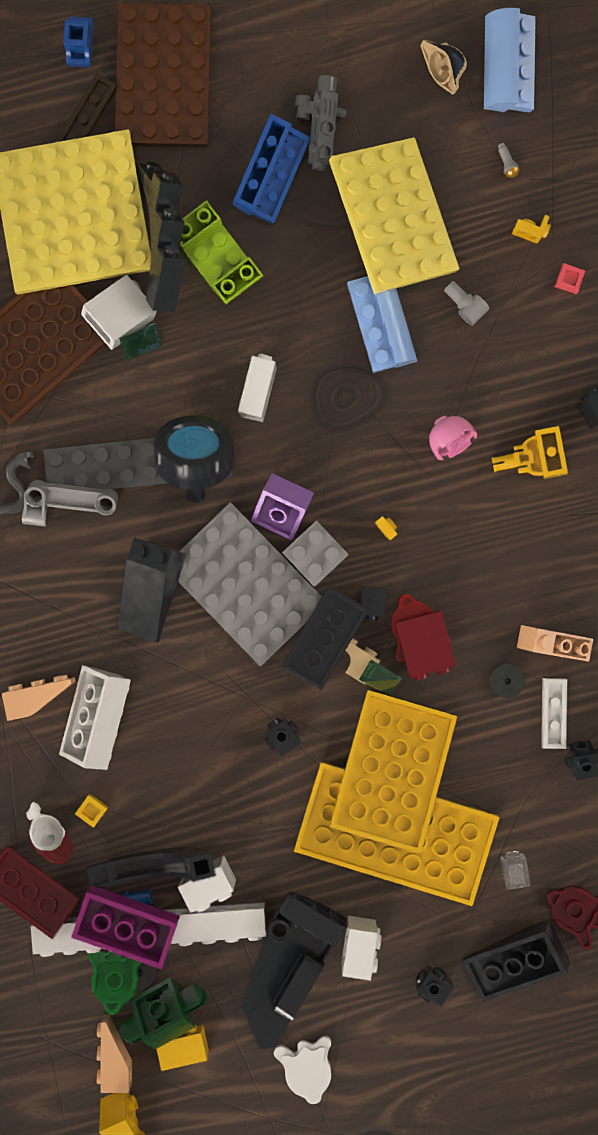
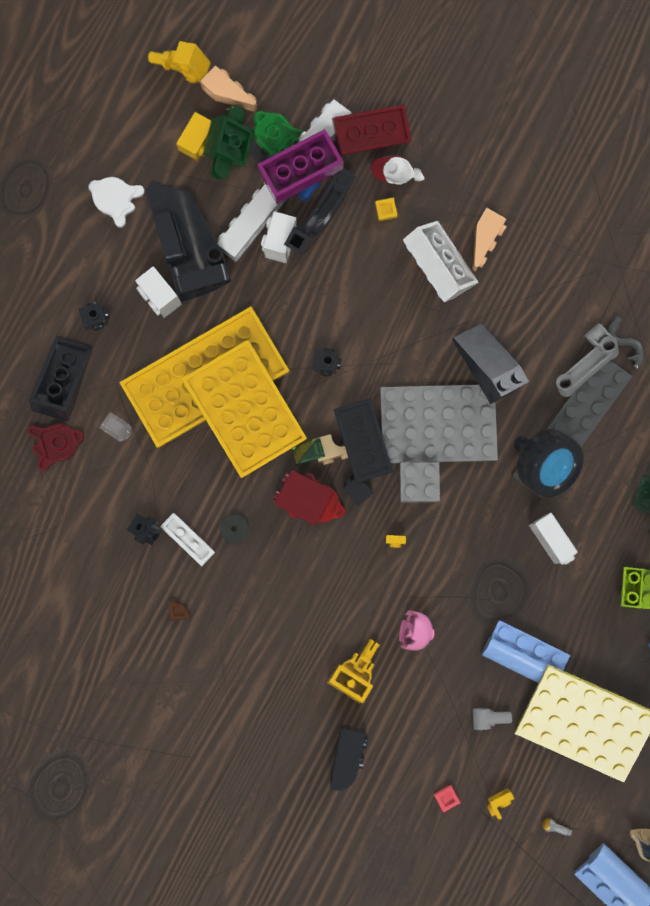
camera: 135 degrees right, 5 degrees down
(282, 506) = (466, 488): medium lavender slope -> none
(554, 643) = (230, 578): light nougat slope -> none

